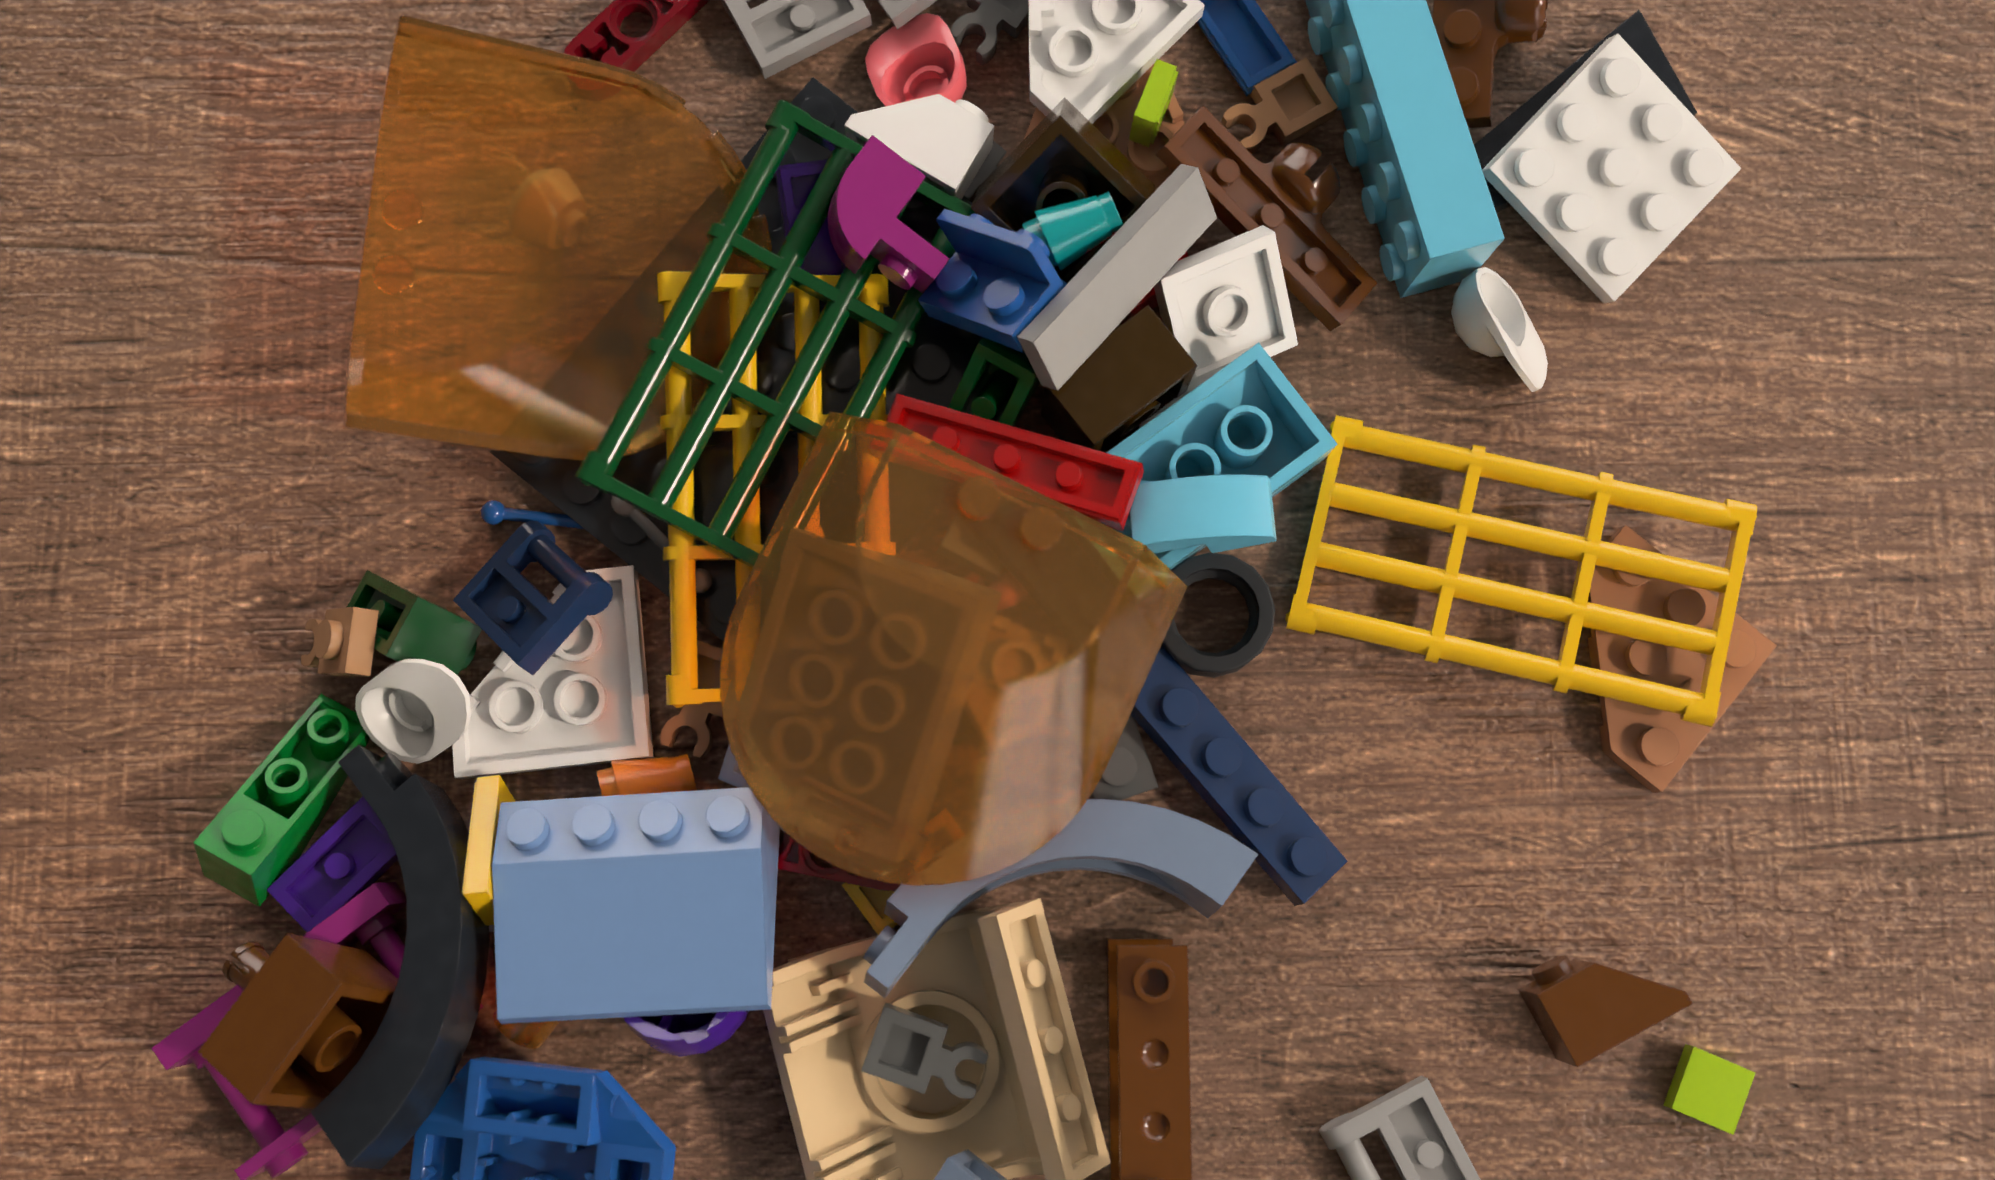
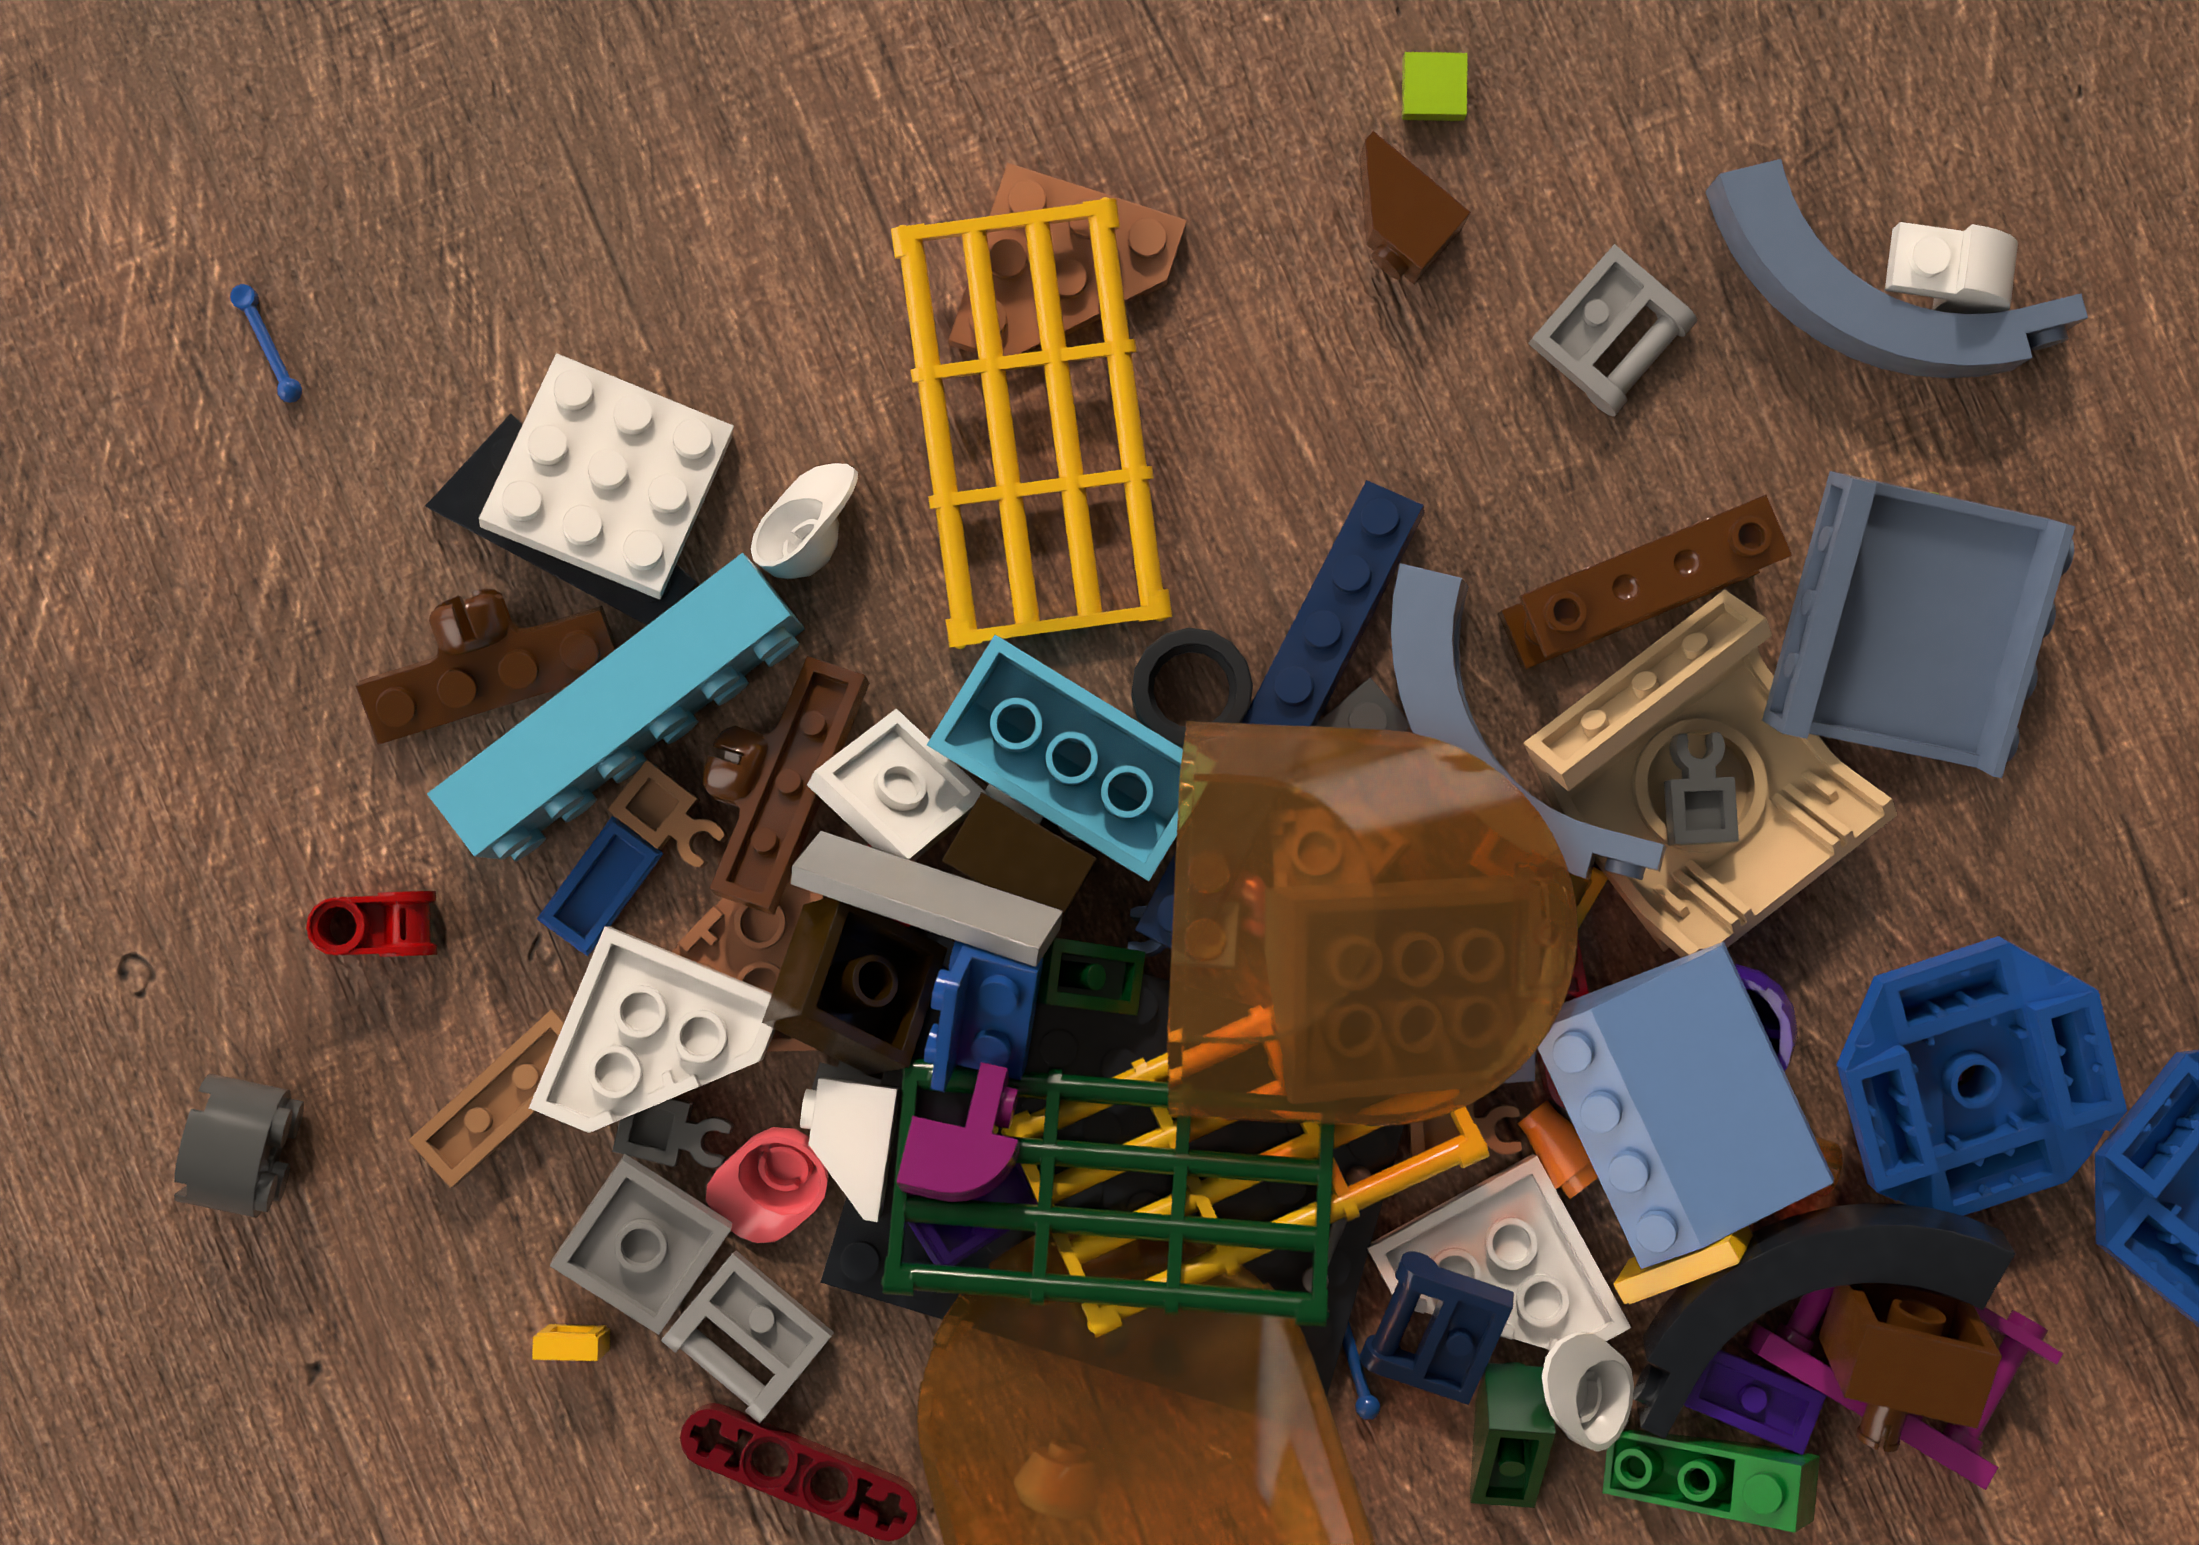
camera: 105 degrees left, 5 degrees up
(343, 642) = (1554, 1486): medium nougat plate -> none
(1071, 474) = (1137, 927): red tile -> none
(1075, 227) = (897, 961): teal cone -> none
(1153, 103) = (723, 936): lime tile -> none
(1206, 510) = (1119, 733): medium azure slope -> none

